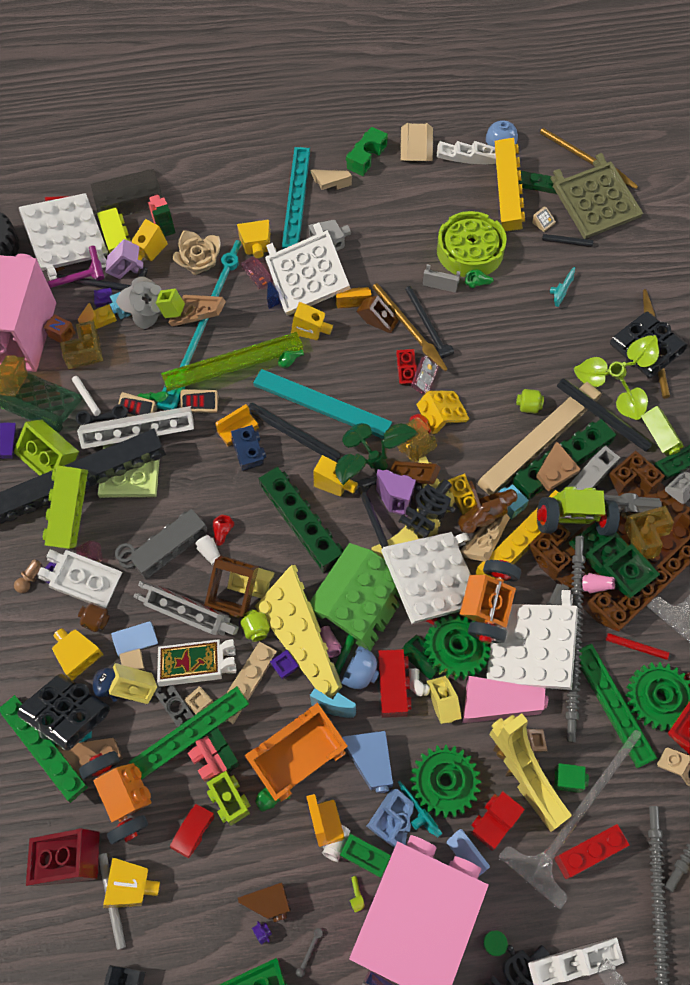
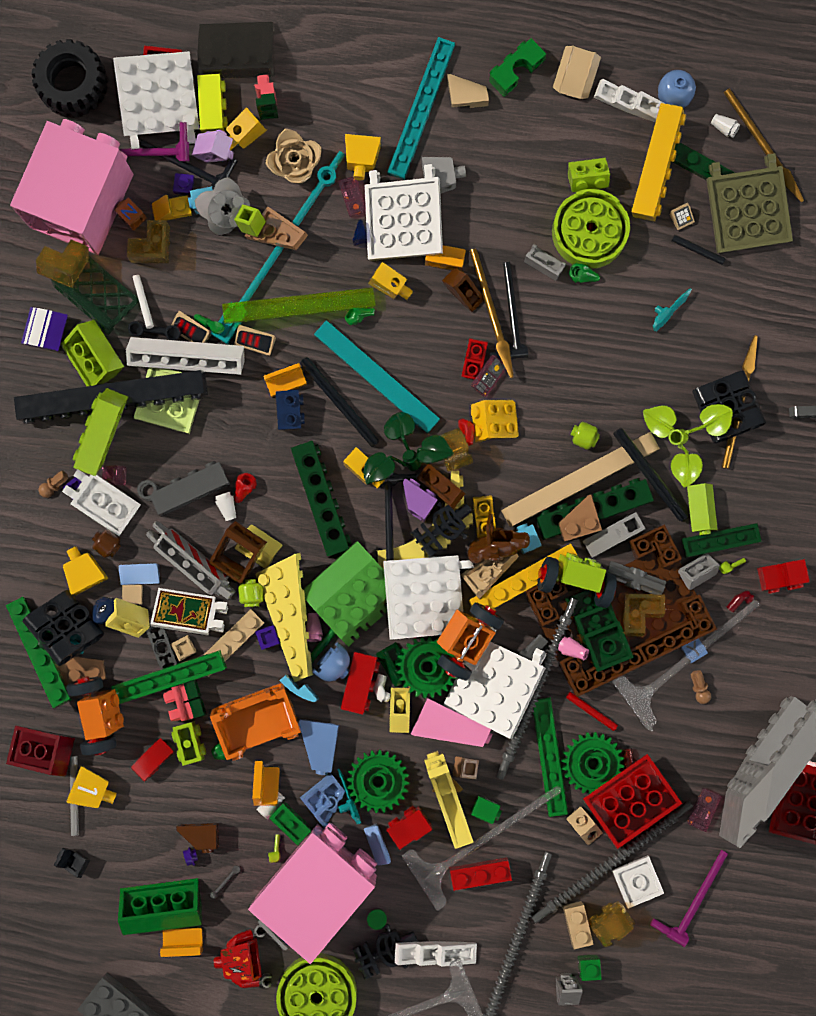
camera: 15 degrees right, 20 degrees up
(453, 205) = (588, 174): none -> lime brick
(551, 151) = (726, 125): none -> white cone

